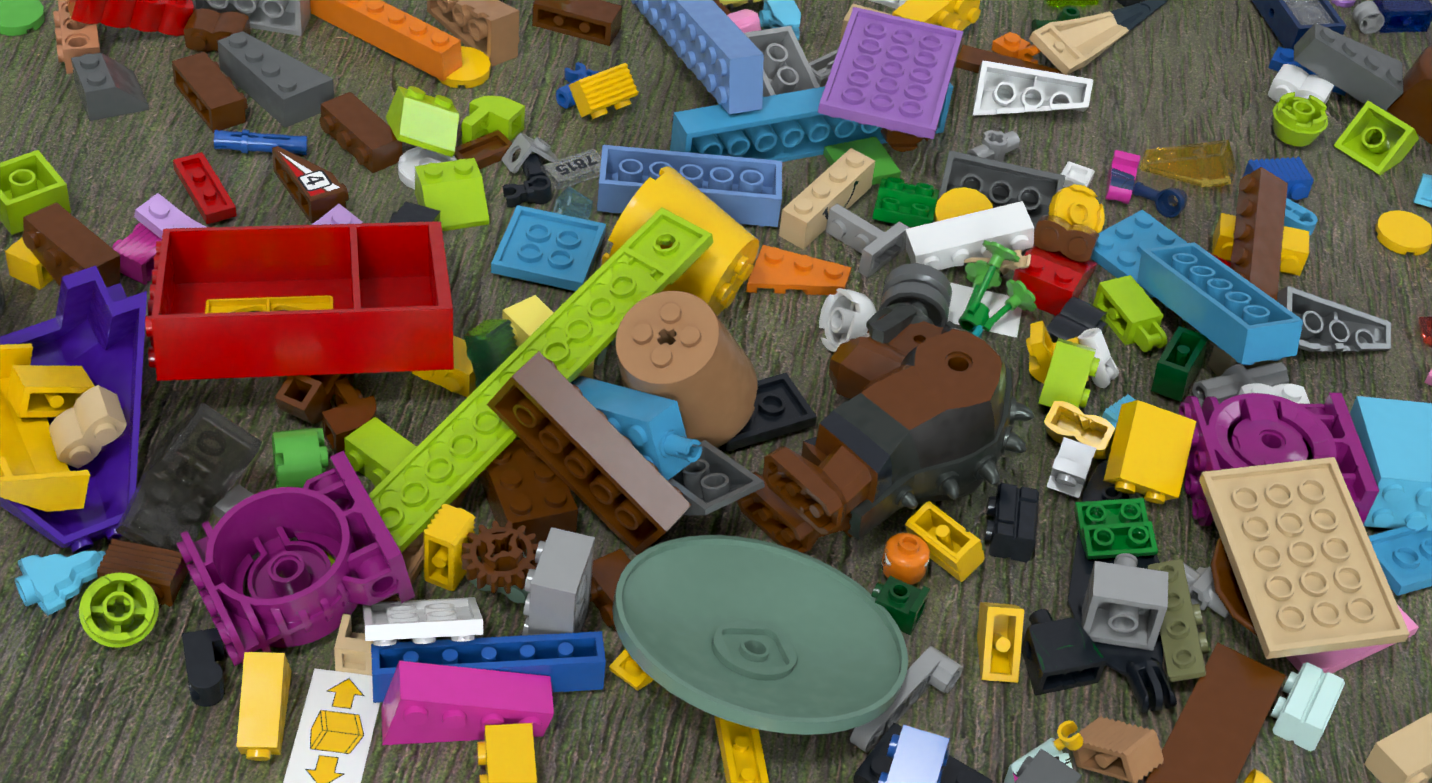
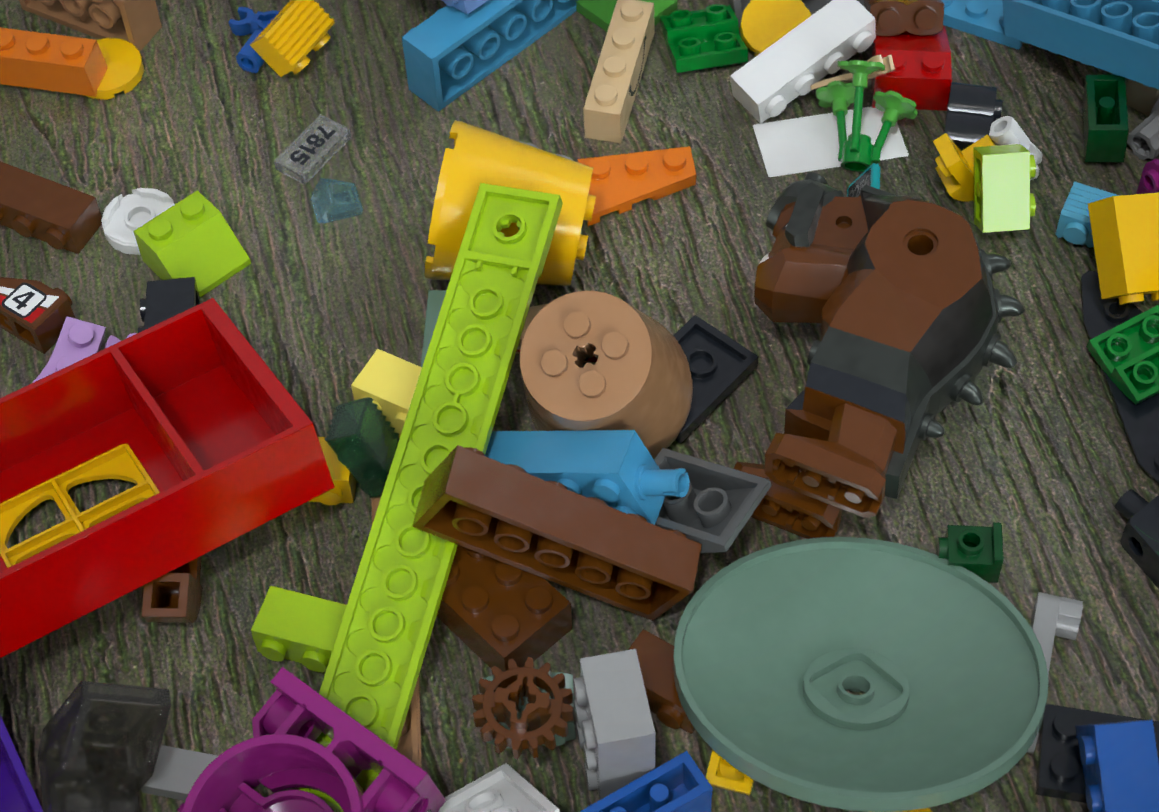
camera: 15 degrees left, 10 degrees up
(298, 456) = (218, 689): bright green brick -> none
(350, 414) = (238, 599): reddish brown brick -> none
(424, 120) = (110, 165): slope -> none
(444, 546) = (449, 718): yellow brick -> none
(485, 150) = (193, 169): reddish brown tile -> none
(493, 114) = (183, 121): lime brick -> none
(527, 146) = (247, 145): light grey bracket -> none
(536, 187) = (282, 194): black bar -> none
(548, 248) = (340, 268): dark azure plate -> none
(739, 185) = (409, 130): medium blue brick -> none
(845, 317) = (727, 220): white cylinder -> none
(874, 244) = (685, 102): light grey bracket -> none
(905, 558) = (950, 494): orange head -> none
(919, 284) = (785, 155): dark grey wheel -> none
(947, 540) = (982, 454): yellow brick -> none
(1000, 641) = (1101, 548): yellow slope -> none
(1012, 523) = (1036, 395): black brick -> none
(1070, 422) = (1059, 250): yellow brick -> none
(1071, 467) = (1061, 299): brick -> none
(1131, 313) = (1019, 74): lime brick -> none

